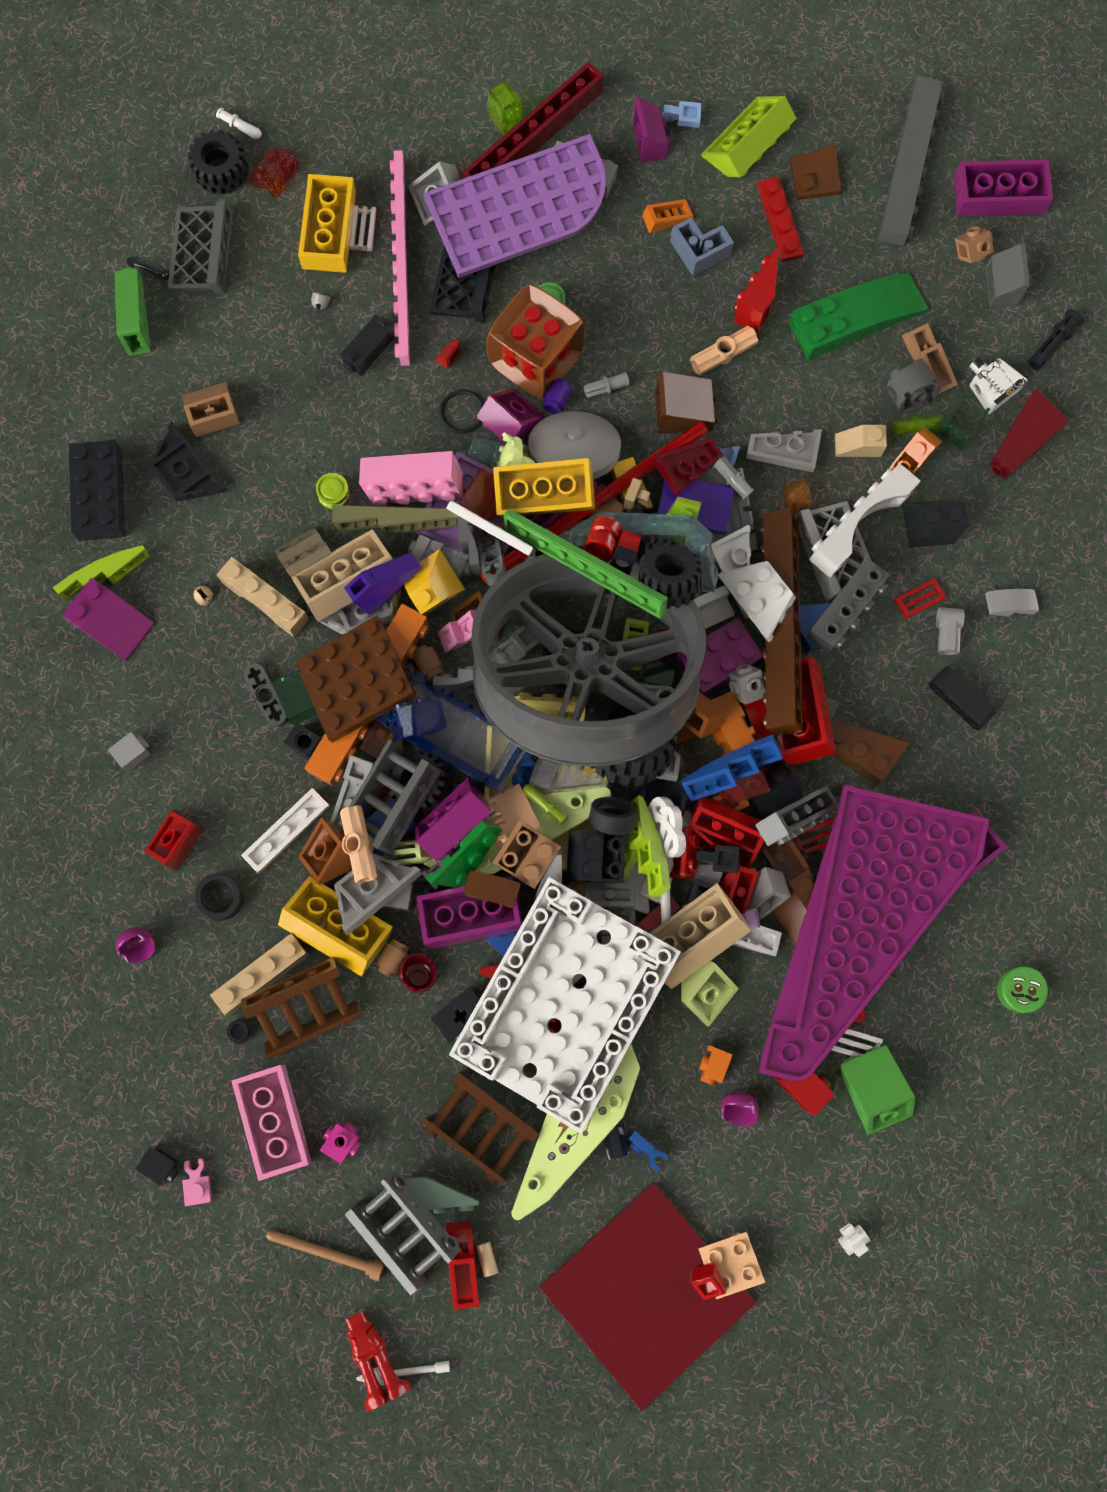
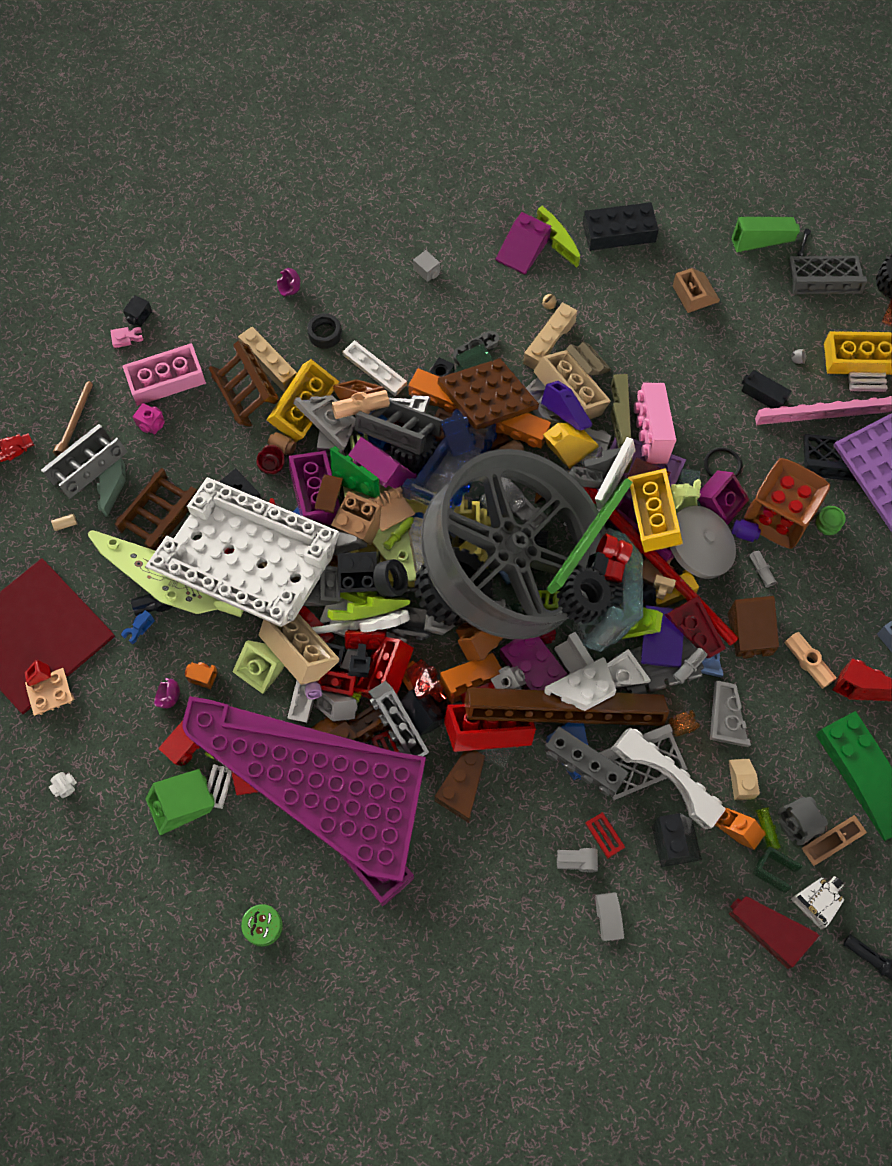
camera: 90 degrees right, 10 degrees down
(173, 840) = (363, 300): red slope -> none
(182, 468) = (645, 278): black wing -> none
(239, 1031) = (228, 352): black plate -> none
(332, 490) = (640, 374): lime wheel -> none
(449, 354) = (769, 450): red slope -> none
(463, 1266) = (60, 505): red slope -> none
(729, 768) = (436, 668): blue slope -> none
(962, 698) = (516, 871): black beam -> none

